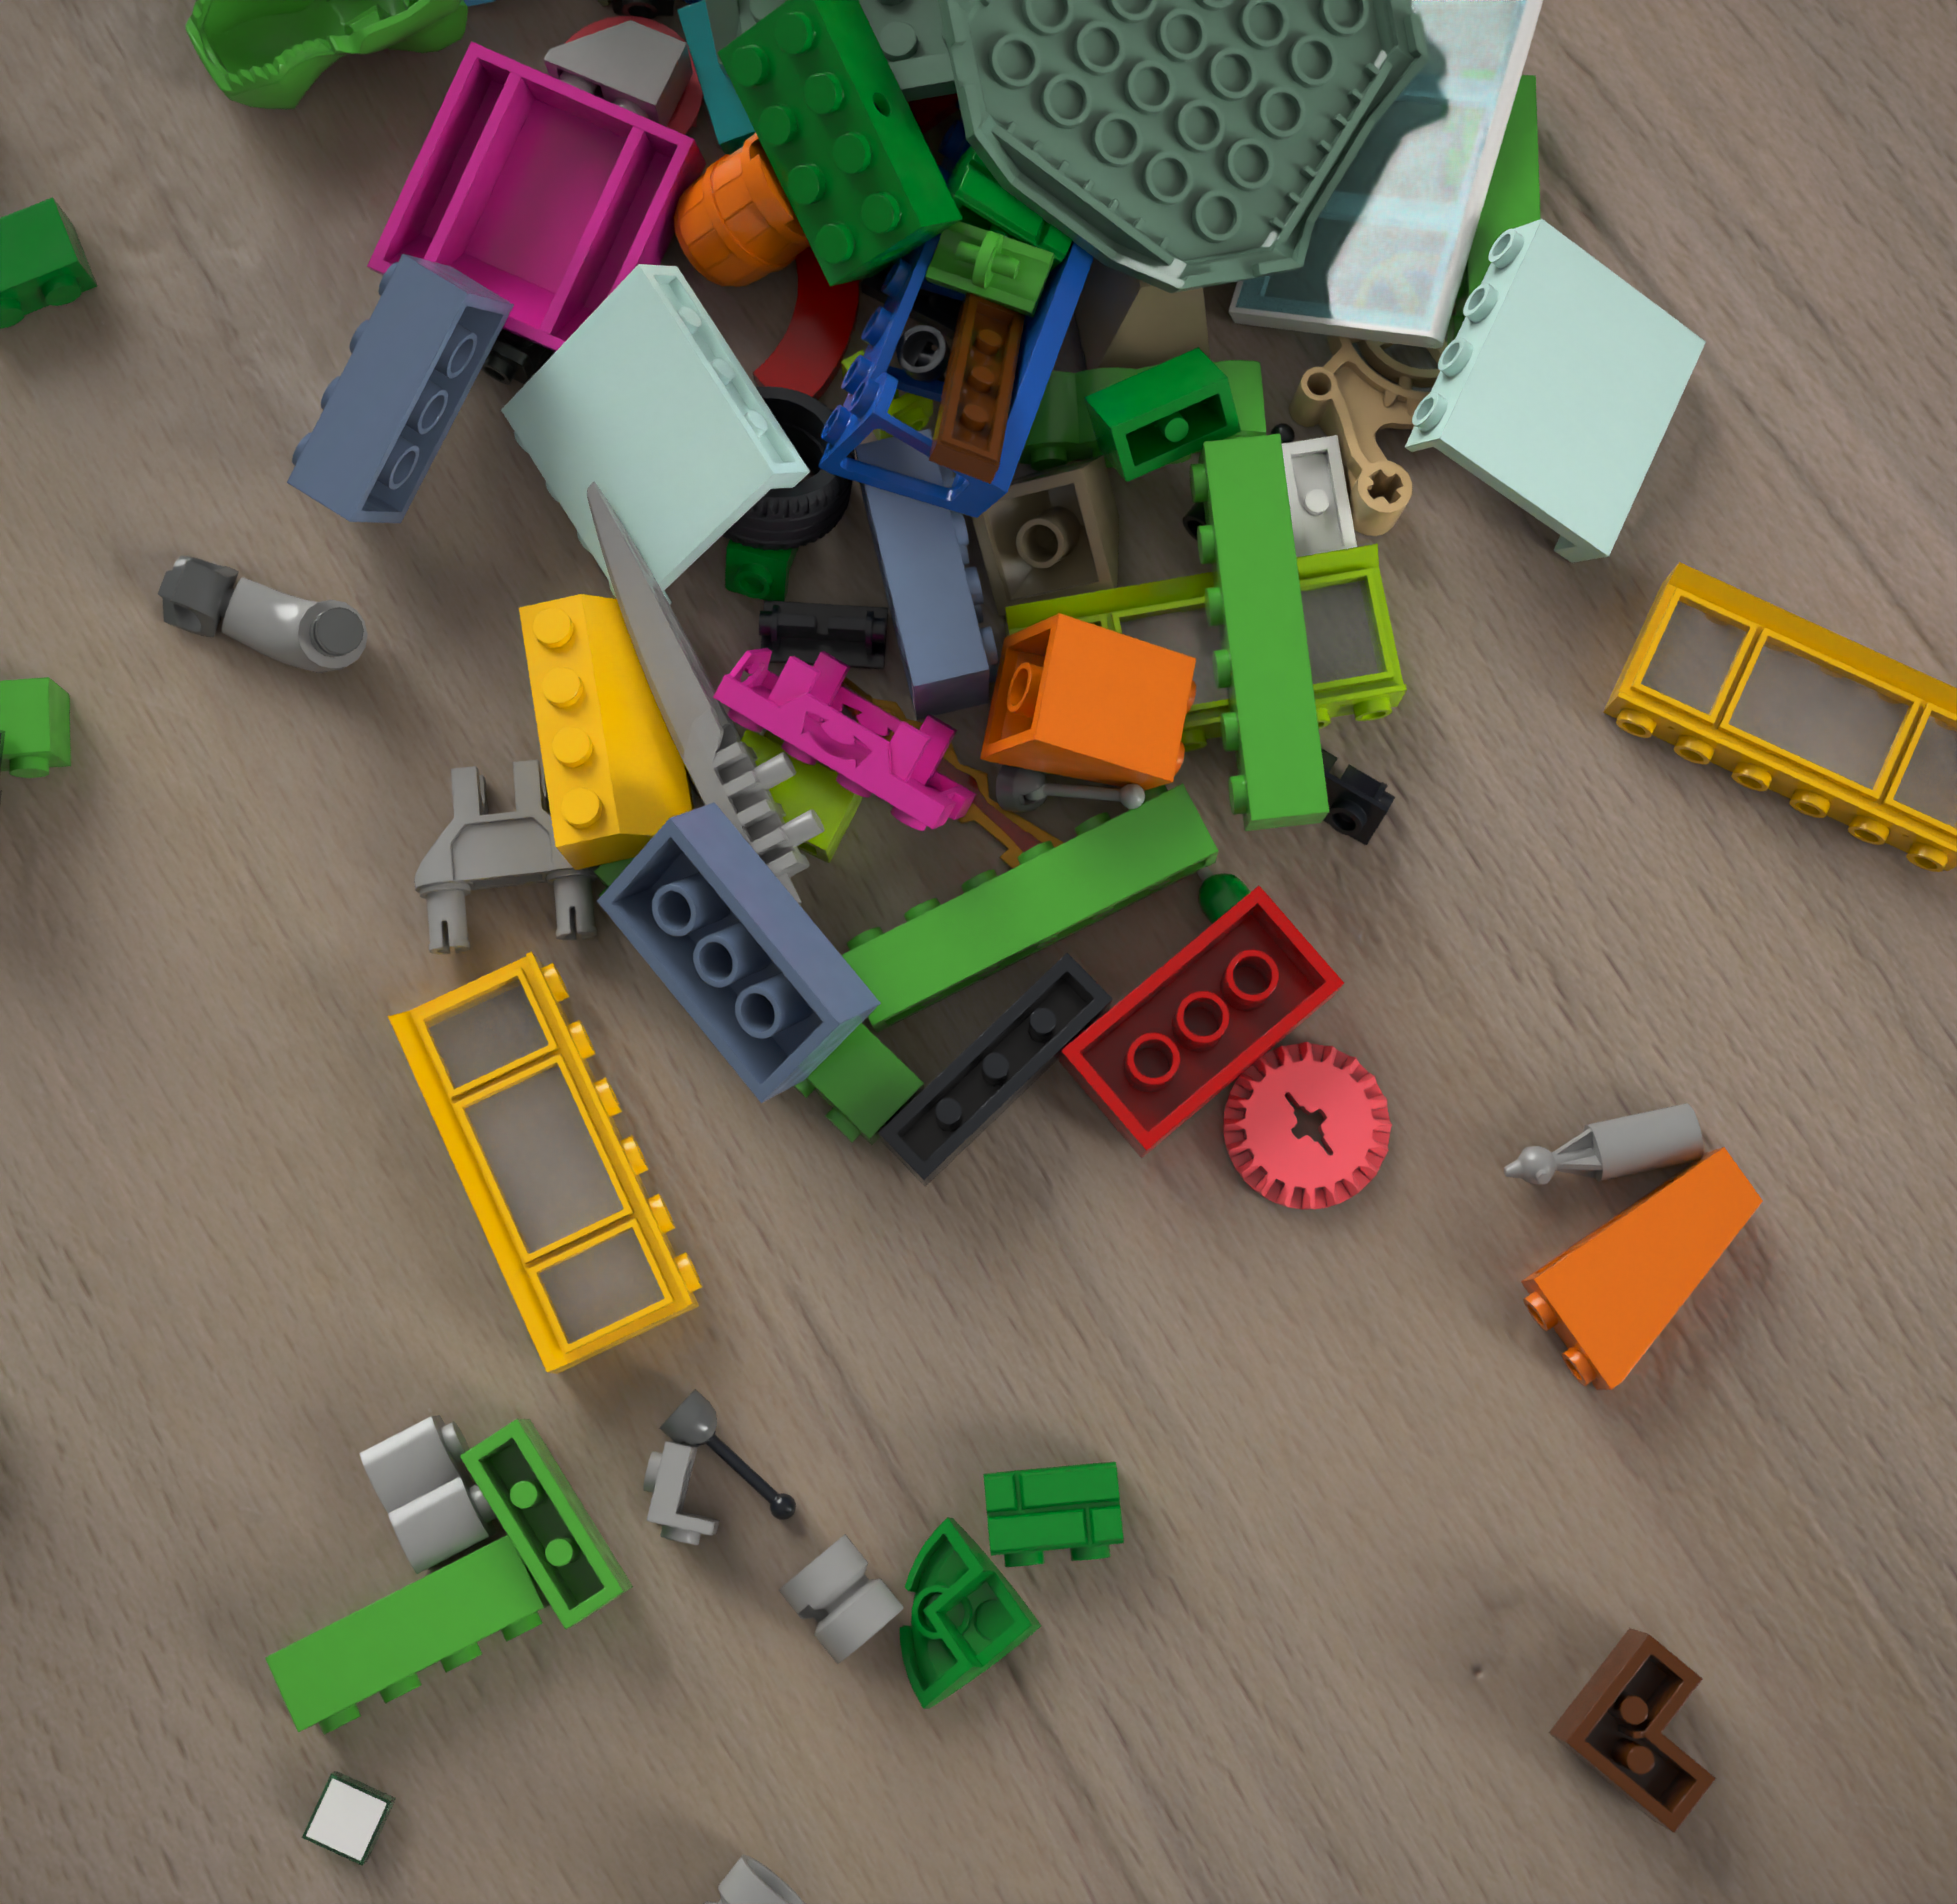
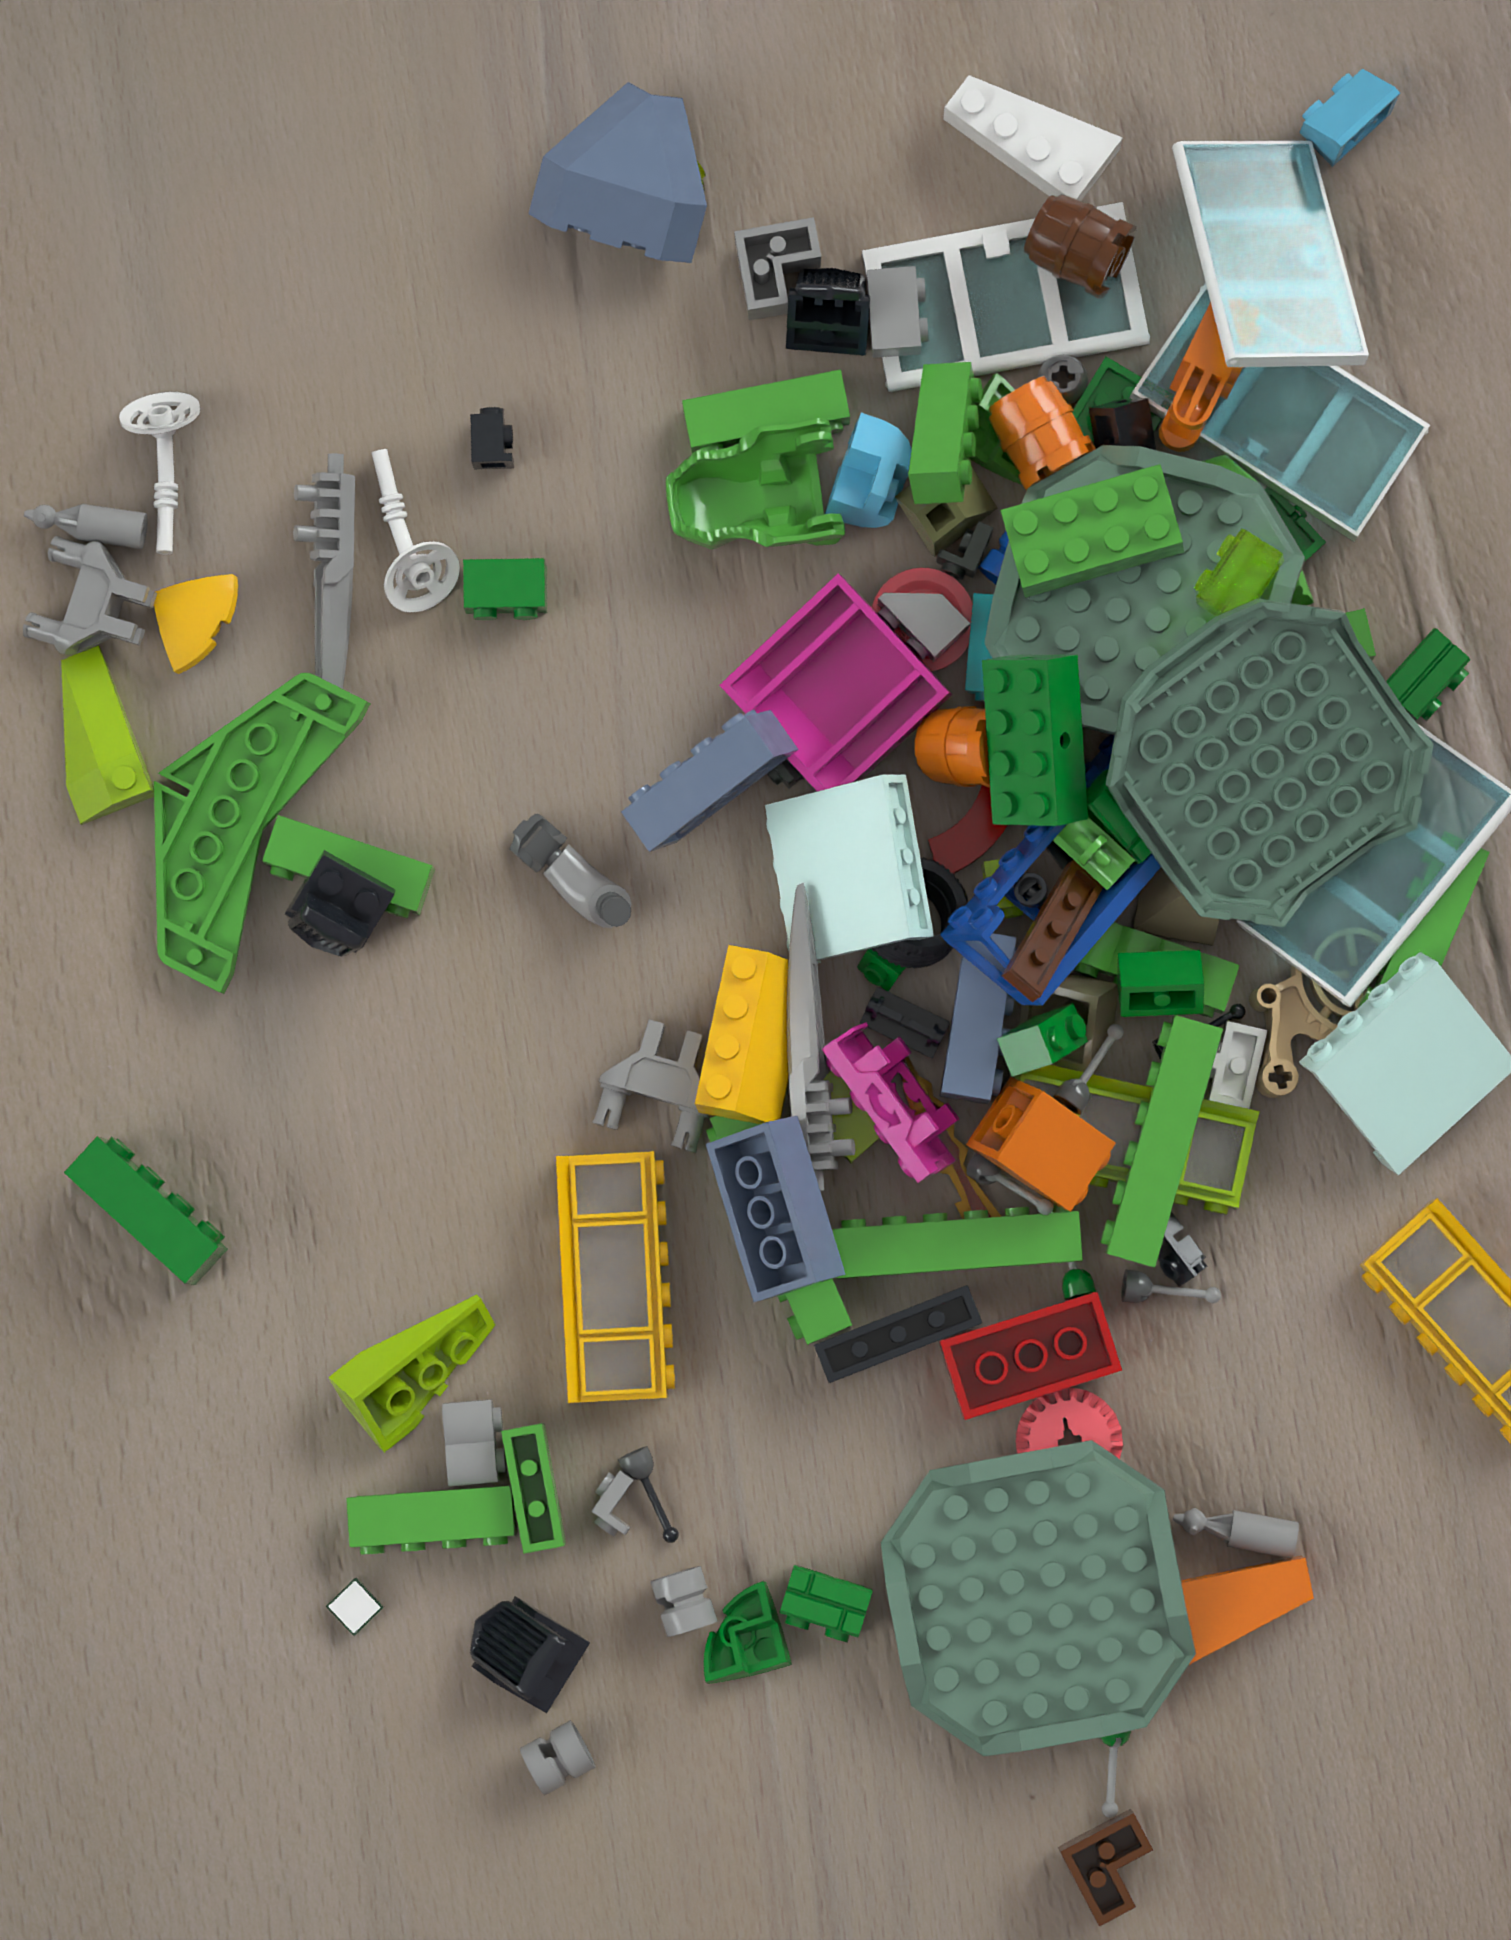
camera: 30 degrees right, 5 degrees up
(285, 1438) = (399, 1376): none -> lime wedge
(633, 1778) = (525, 1651): none -> black piece
(1028, 557) = (1043, 1039): none -> green brick
(1109, 612) = (1074, 1092): none -> hinge
(1310, 865) = (1138, 1287): none -> hinge
(1365, 1374) = (1037, 1599): none -> sand green plate
(1558, 1525) = (1114, 1741): none -> light grey hinge

